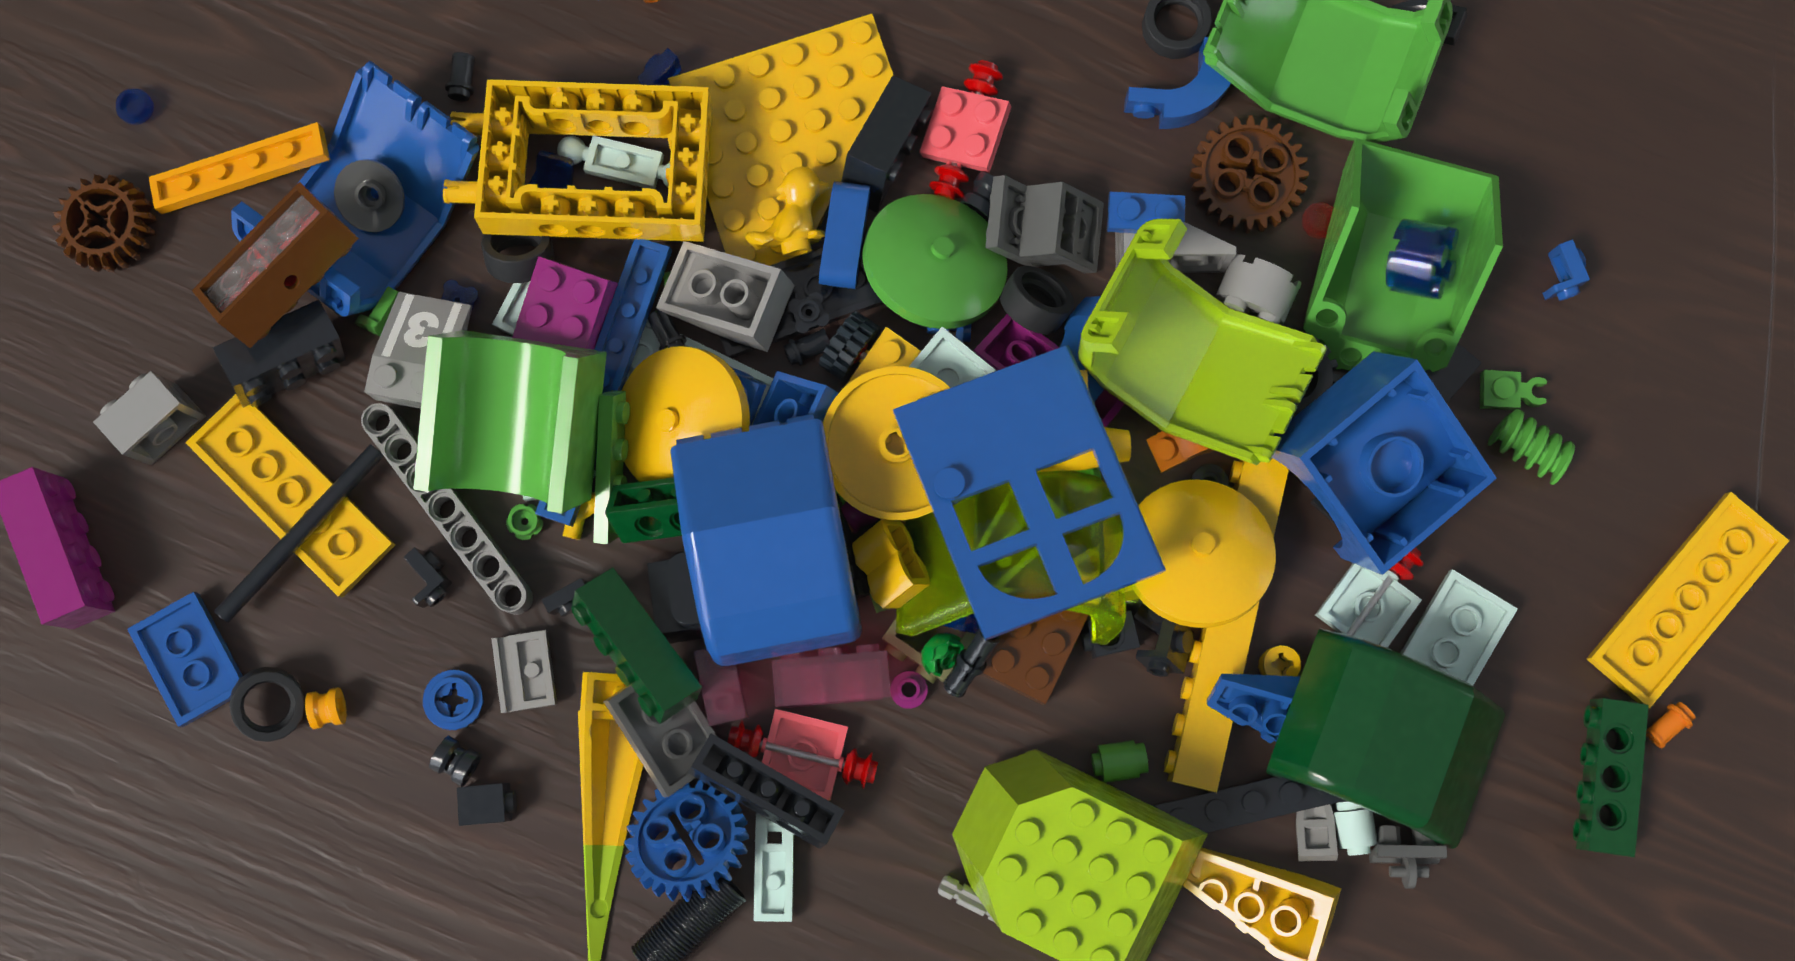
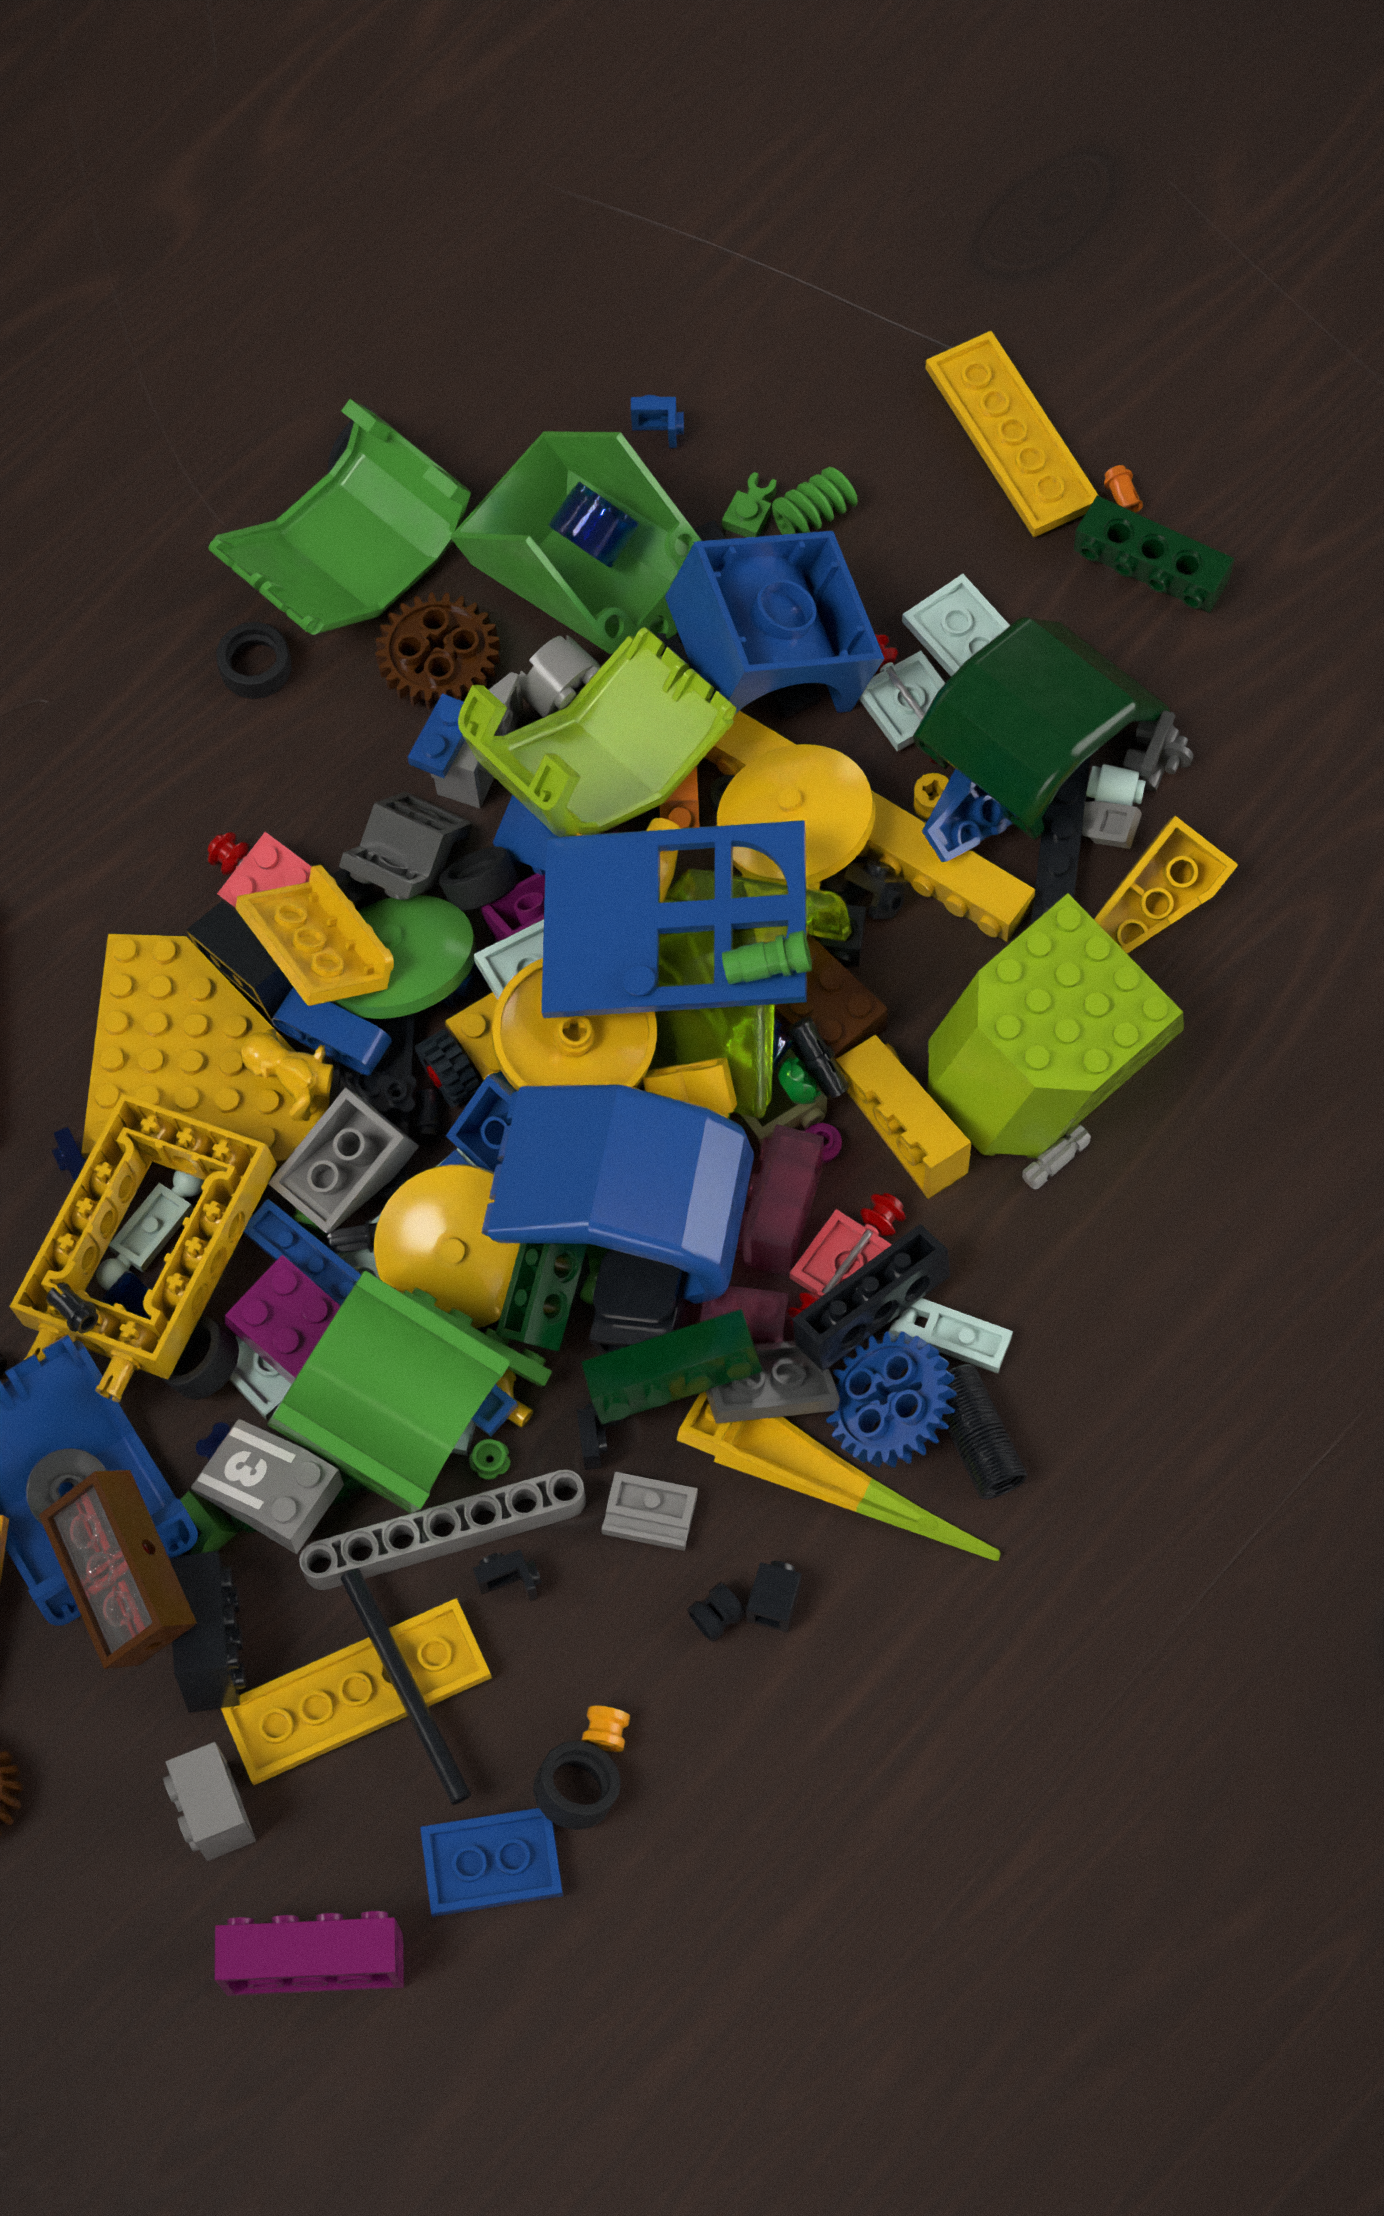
camera: 65 degrees left, 15 degrees down
(443, 685) = (640, 1579): blue gear -> none
(490, 137) = (79, 1315): none -> black pin
(908, 187) = (318, 939): none -> yellow bracket
(958, 751) = (905, 1116): none -> yellow wedge
(1004, 592) = (768, 959): none -> bright green axle
(1120, 761) = (966, 964): bright green brick -> none
(1180, 105) = (341, 685): blue arch -> none
(1317, 219) = (511, 608): clear red plate -> none

